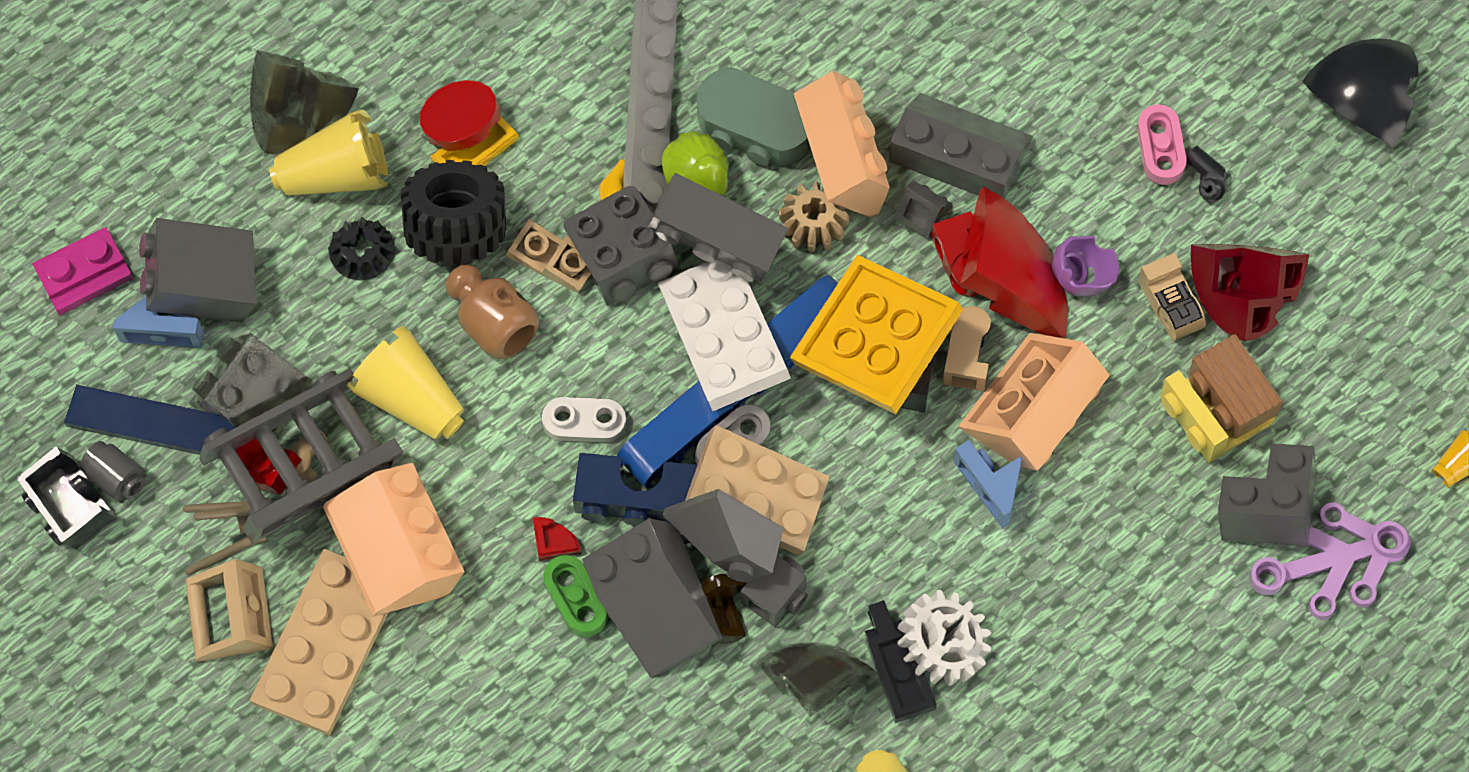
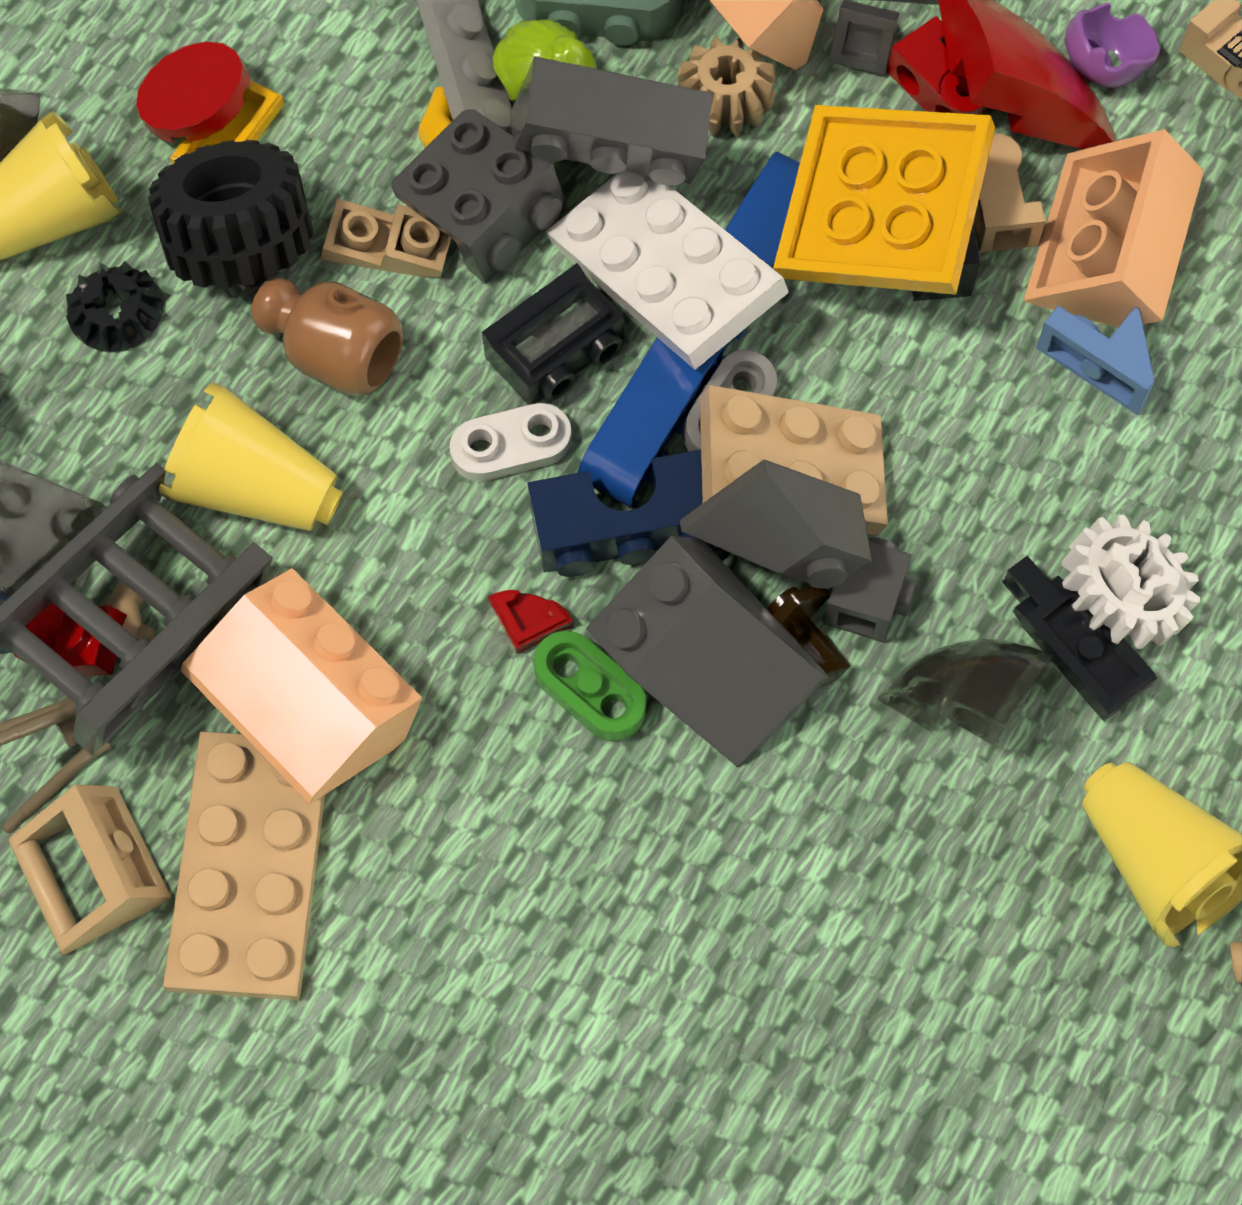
camera: 20 degrees left, 0 degrees up
(636, 358) = (554, 337): none -> black window

